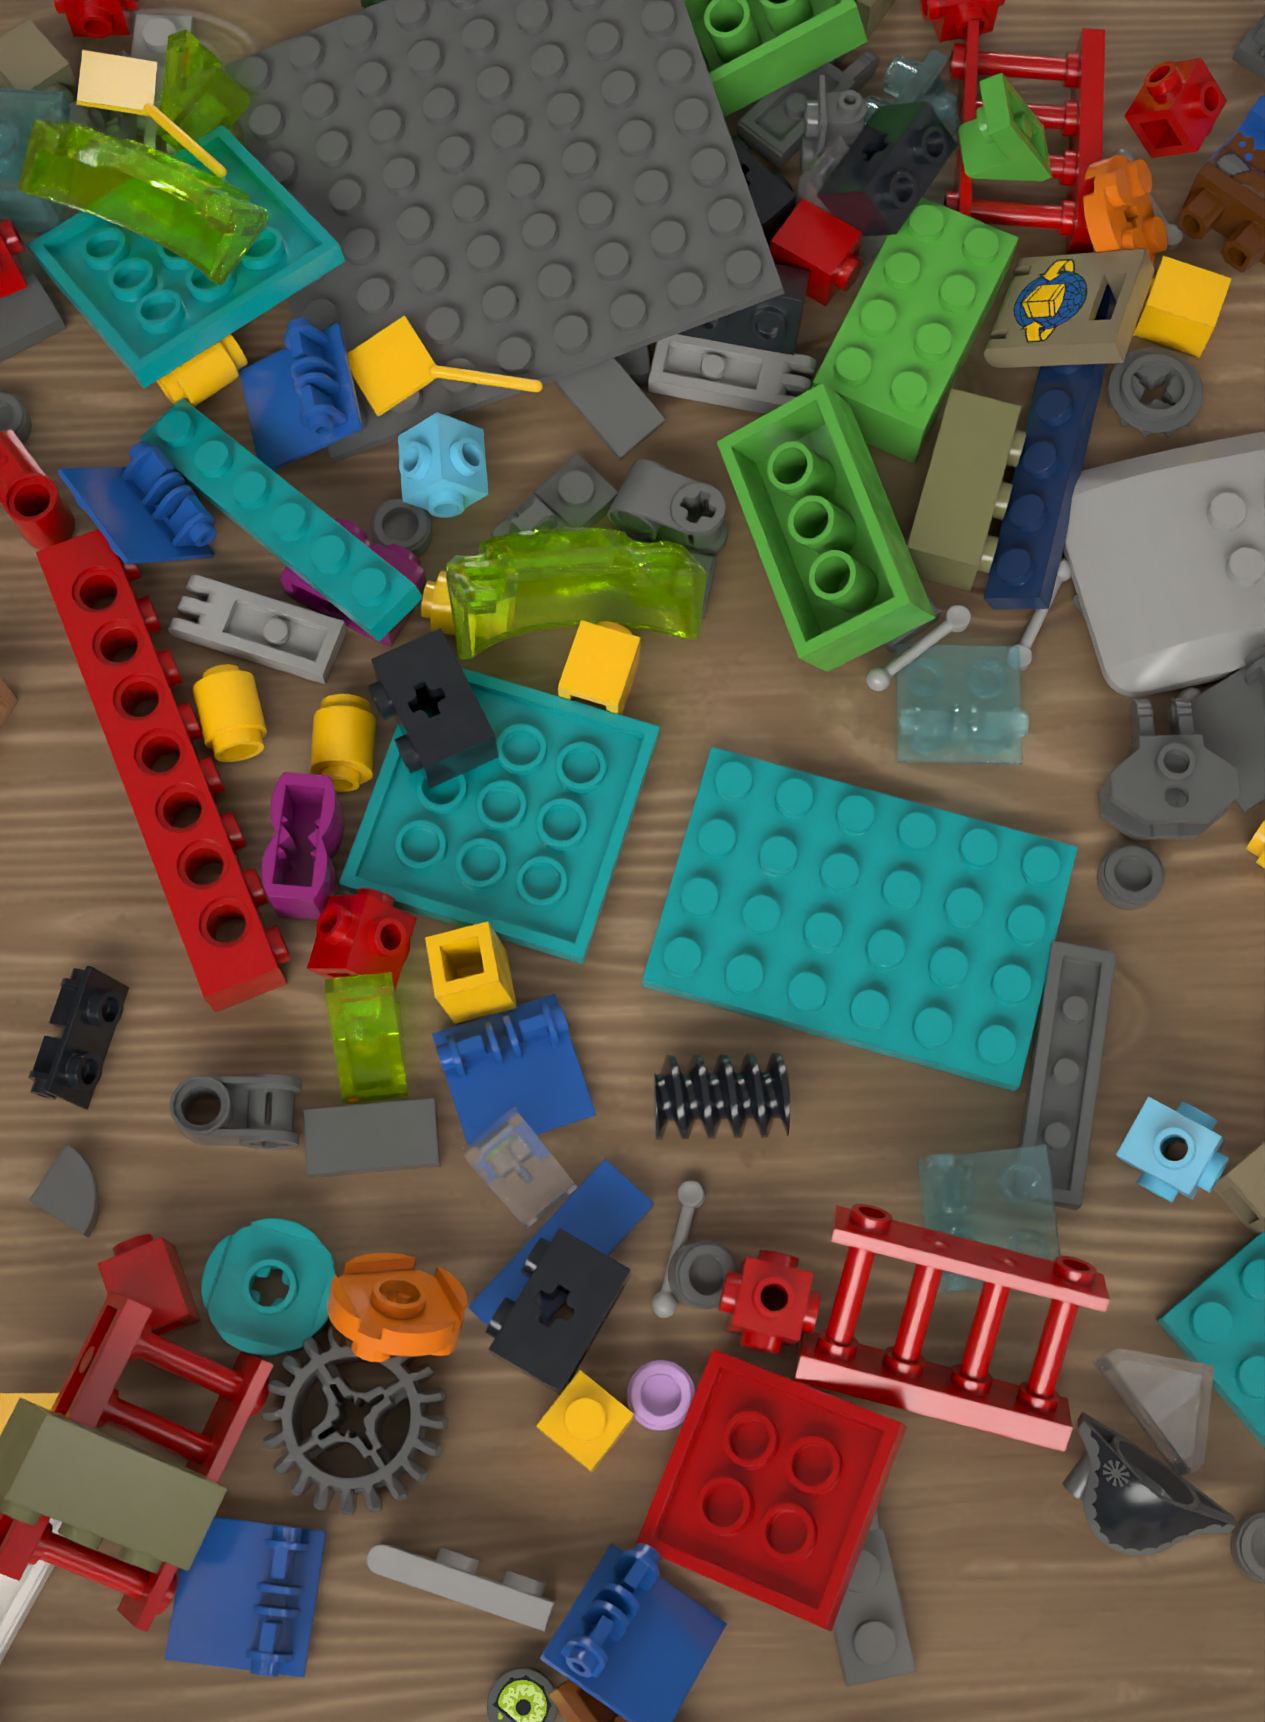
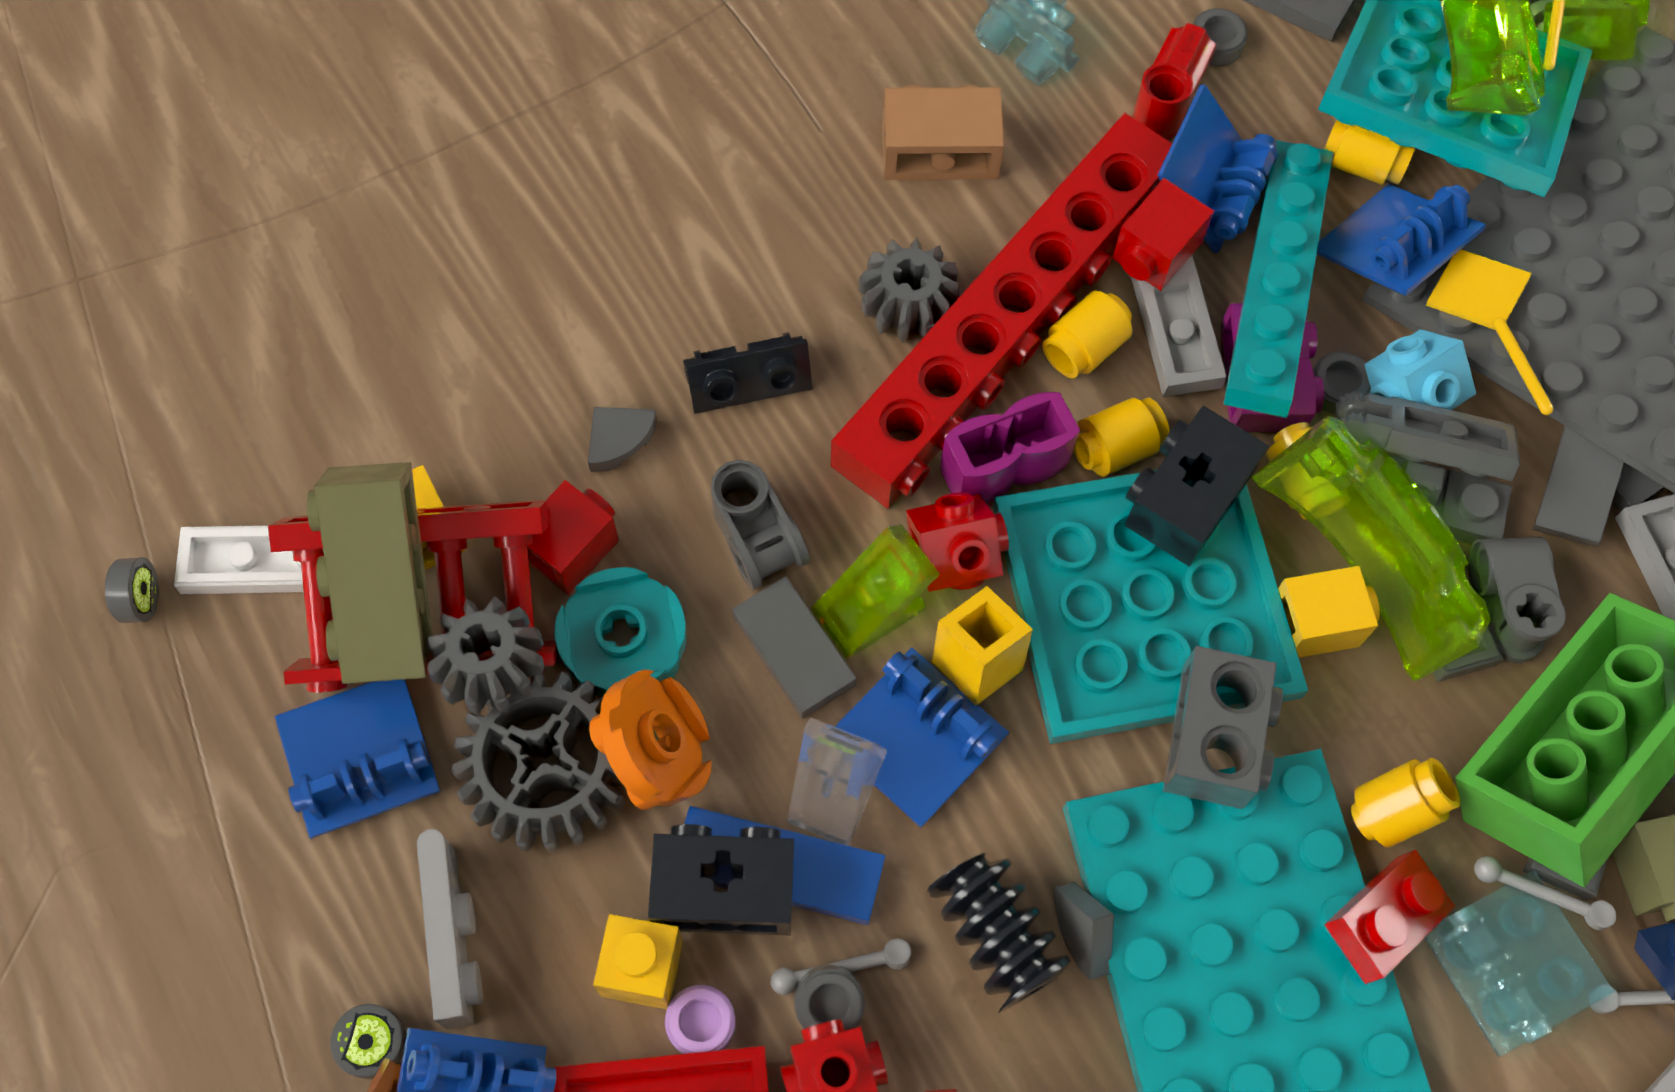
camera: 60 degrees right, 5 degrees down
(76, 829) = (908, 288): none -> dark grey gear
(181, 594) = (1162, 234): none -> red brick
(229, 1397) = (466, 638): none -> dark grey gear
(501, 490) = (1432, 434): none -> dark grey hinge
(644, 826) = (1208, 723): none -> dark grey brick
(755, 1026) = (1085, 929): none -> dark grey tile
(793, 709) = (1404, 802): none -> yellow brick
(876, 778) = (1390, 916): none -> red plate

